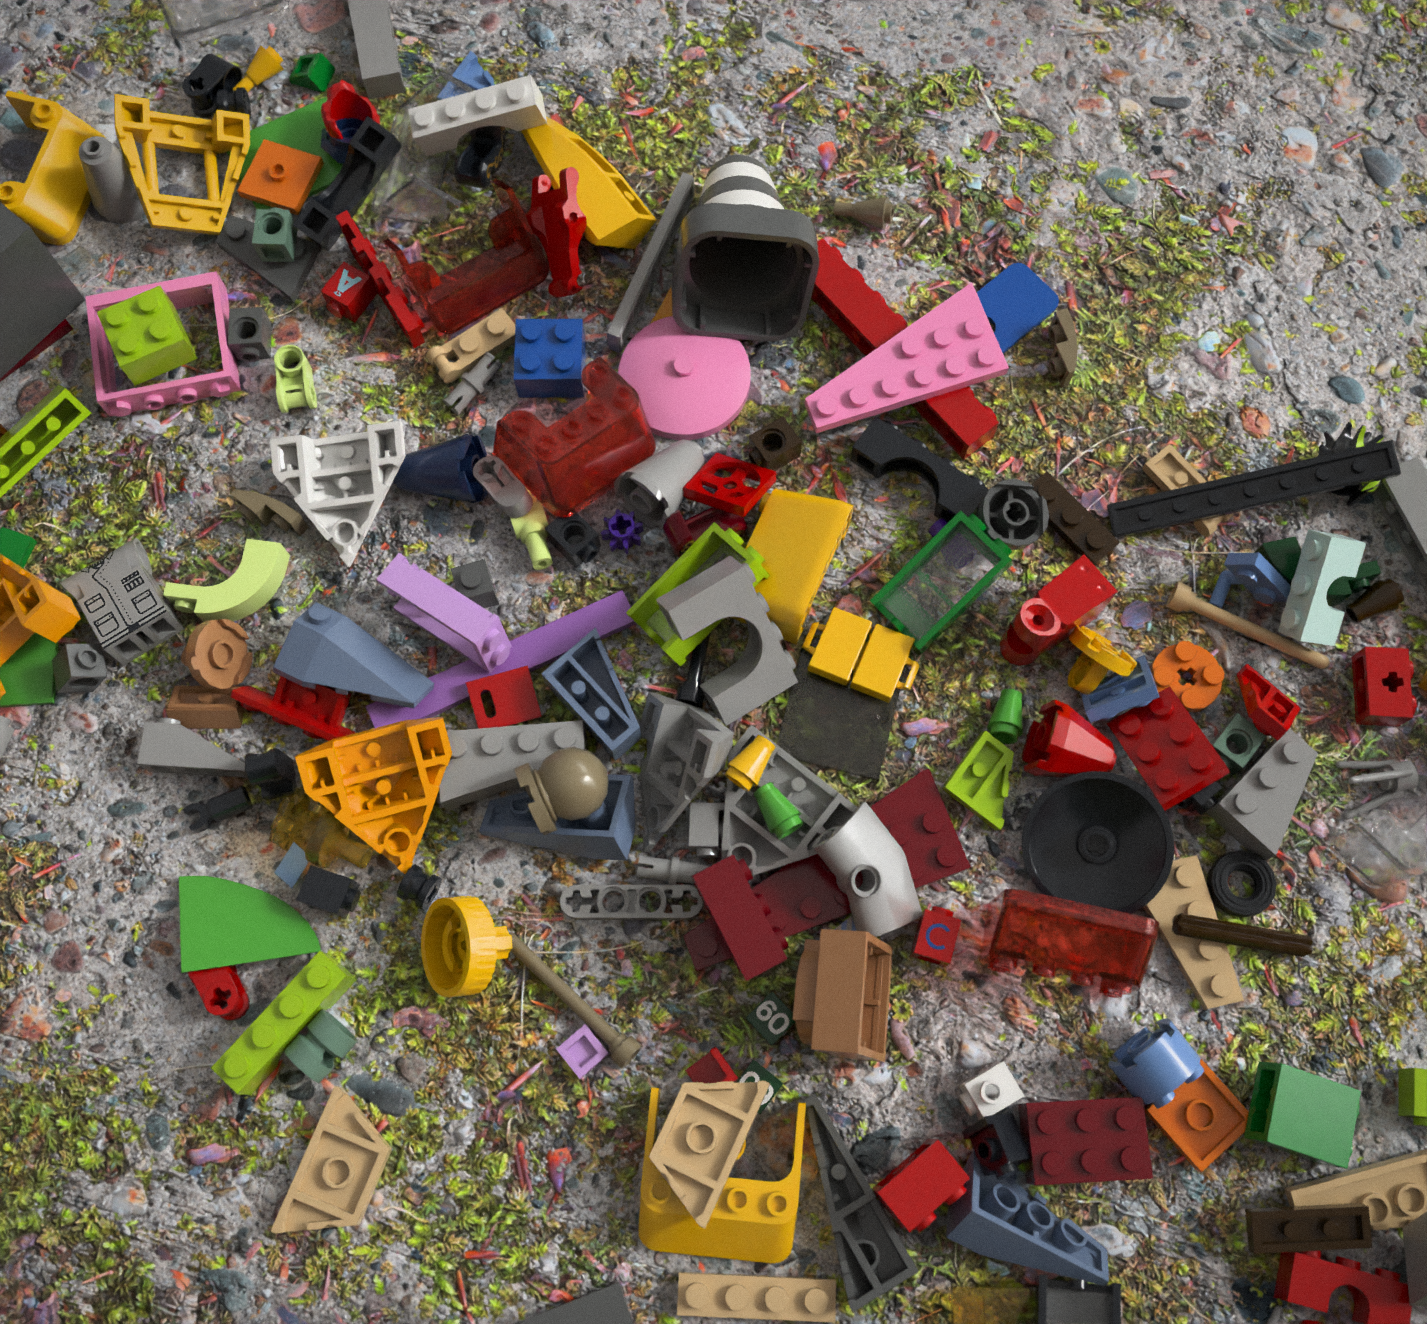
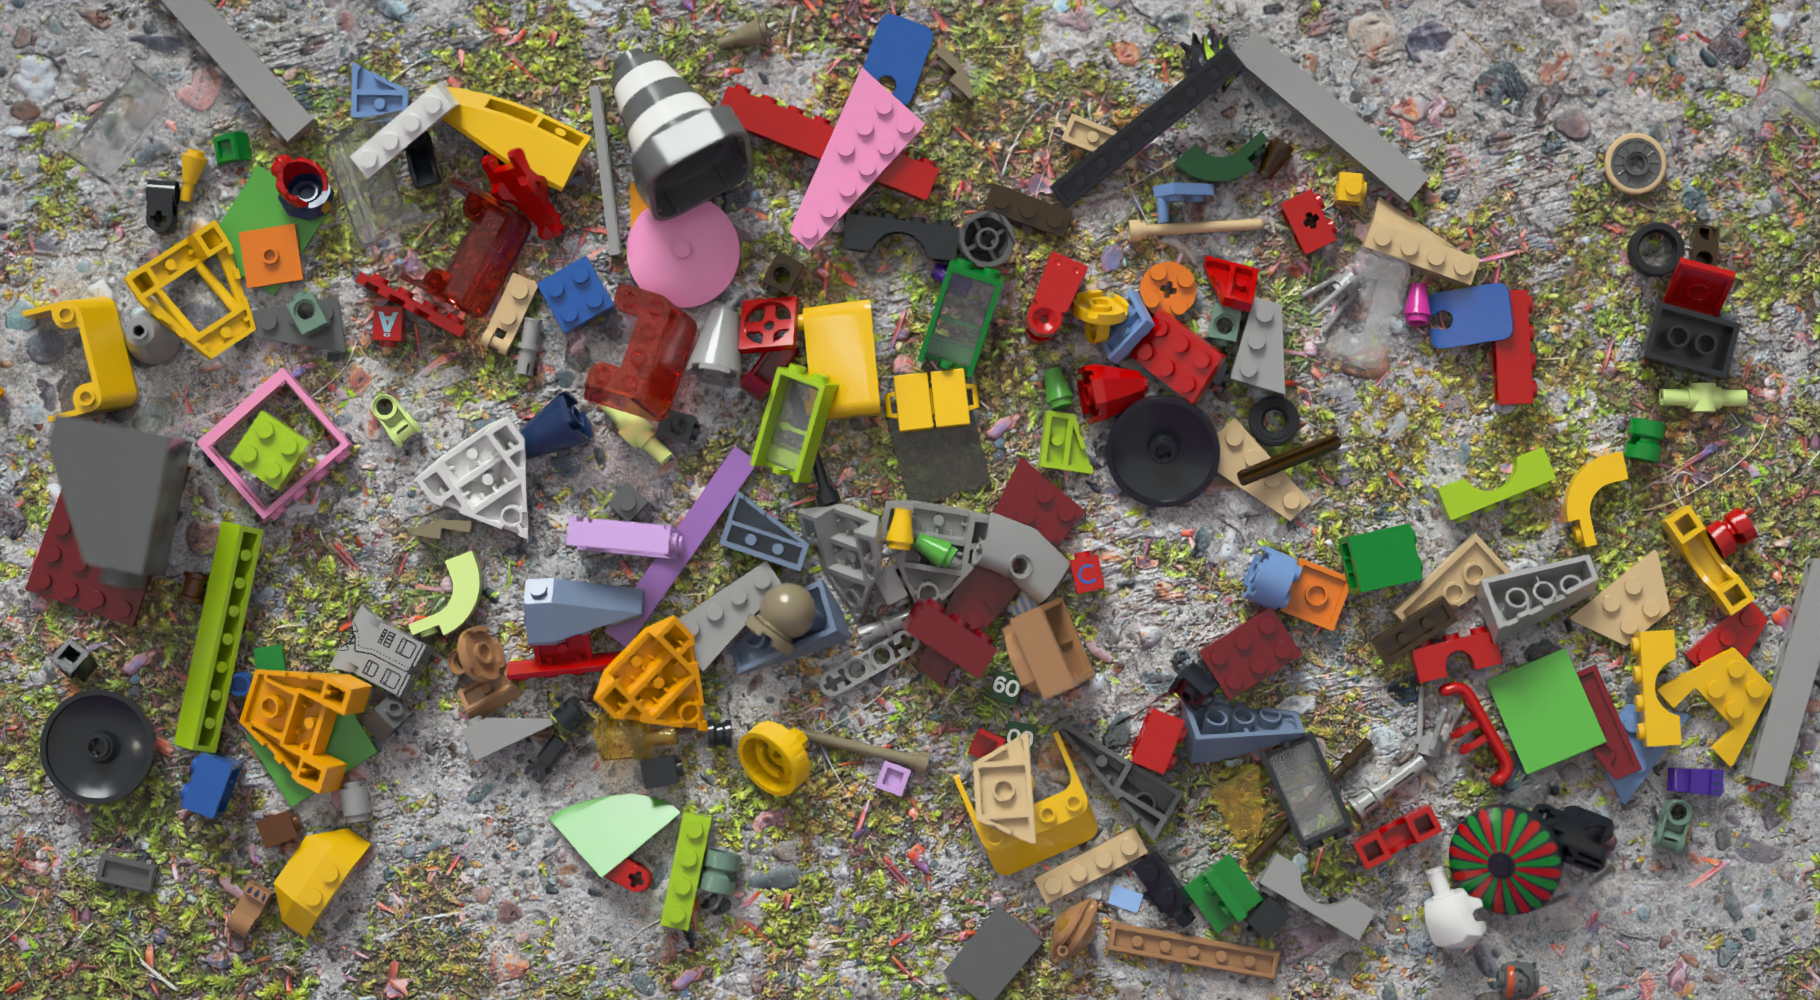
camera: 30 degrees left, 15 degrees up
(234, 101) = (193, 214): black wheel -> none
(247, 322) = (327, 392): dark grey brick -> none
(292, 865) = (623, 767): light blue sticker -> none
(336, 1170) = (777, 940): tan wing -> none
(366, 161) = (338, 242): black arch -> none
(512, 697) = (703, 567): red piece -> none
(513, 497) = (594, 416): light grey piece -> none
(621, 521) = (701, 402): dark purple gear -> none
(763, 667) = (818, 425): light grey arch -> none
(990, 1091) = (1173, 655): white brick -> none
(1068, 939) = (1174, 533): clear red windscreen -> none
(1321, 562) = (1222, 158): light aqua arch -> none

